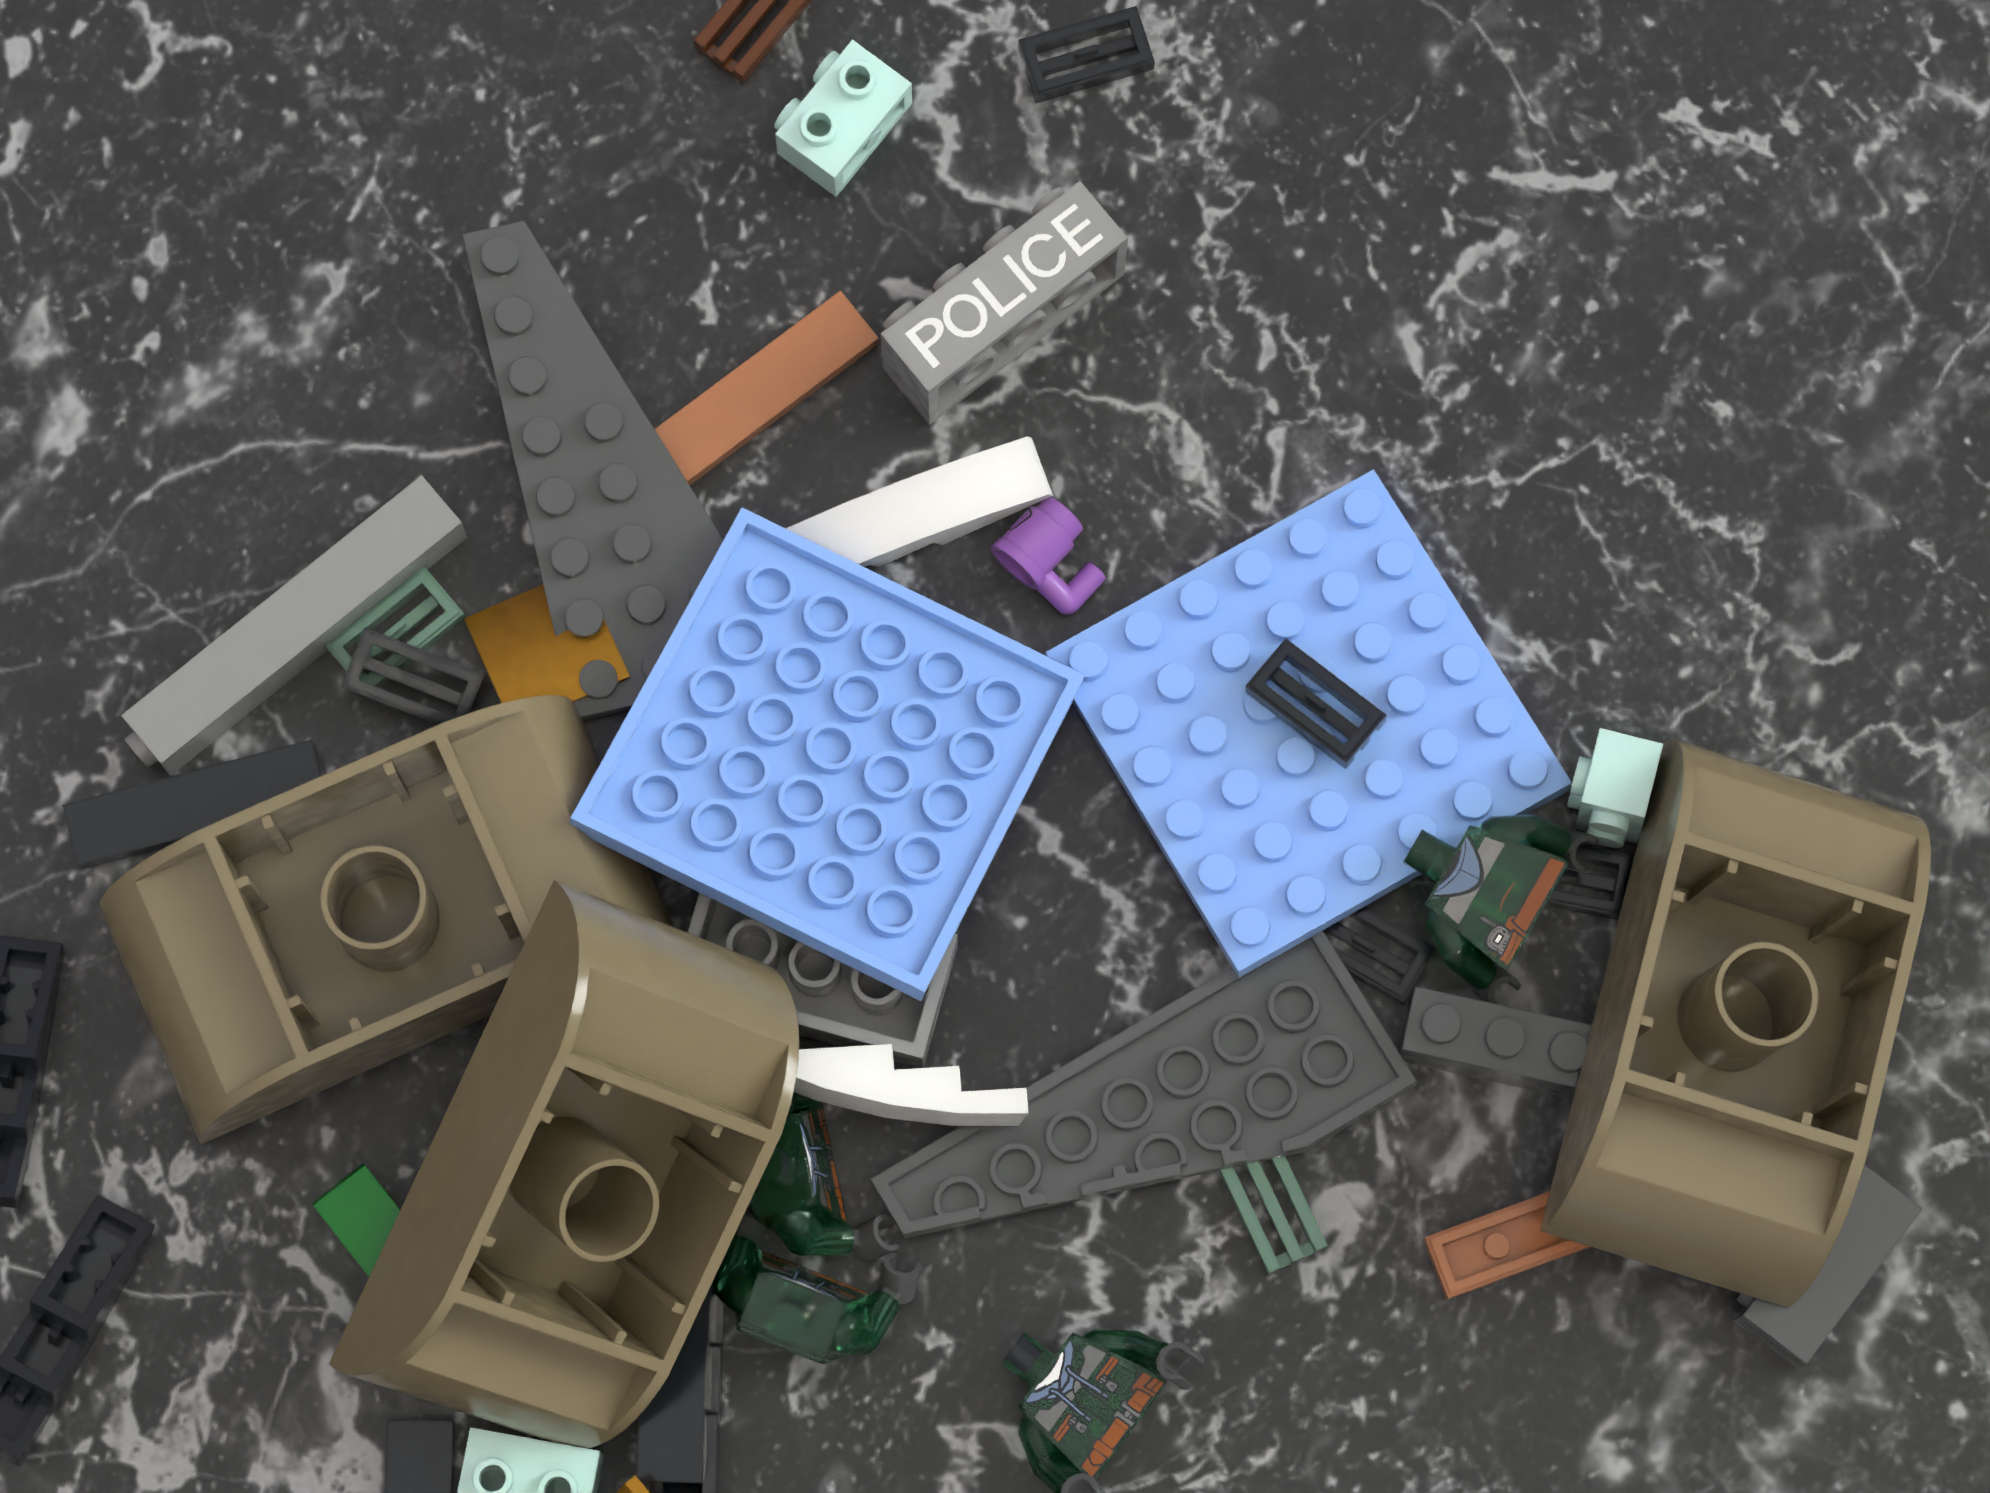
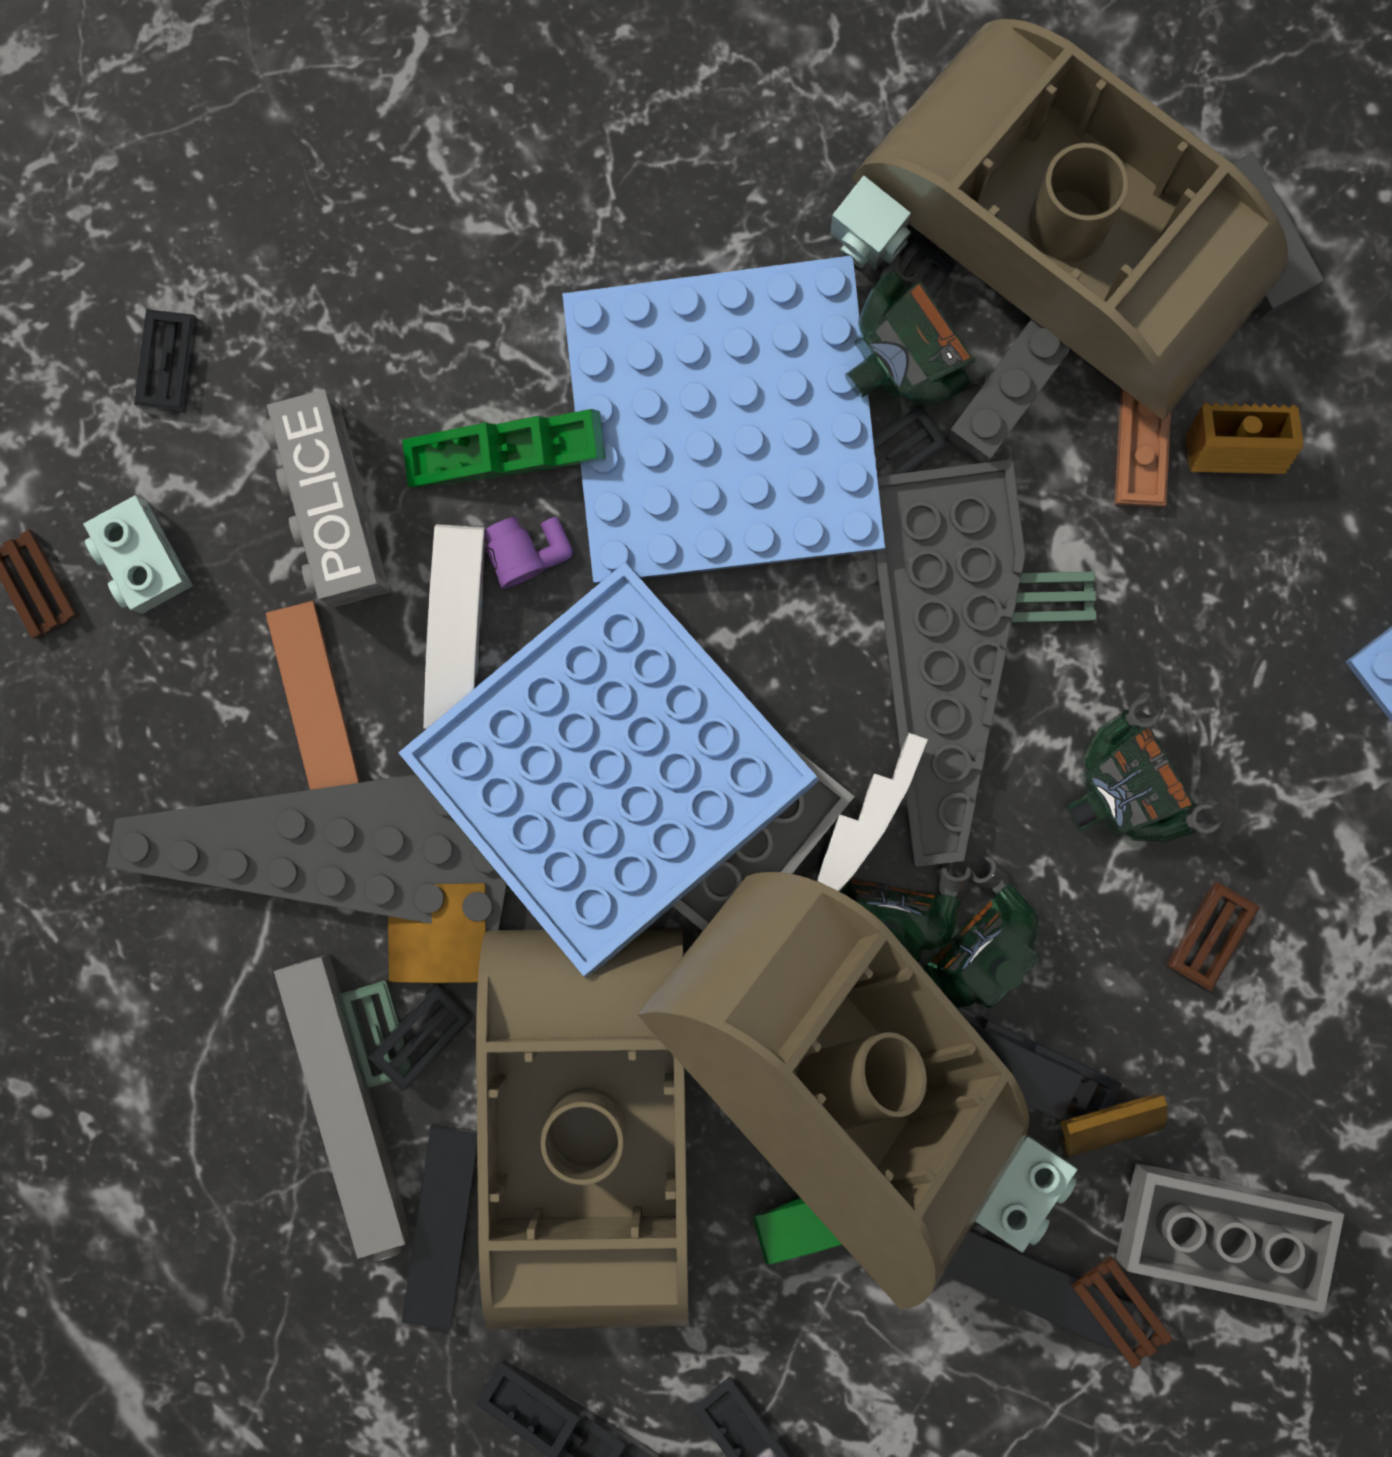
camera: 65 degrees left, 10 degrees up
(1157, 480) = (503, 448): none -> green slope
(1357, 737) = (726, 426): black tile -> none
(1569, 1351) = (1244, 439): none -> pearl gold brick

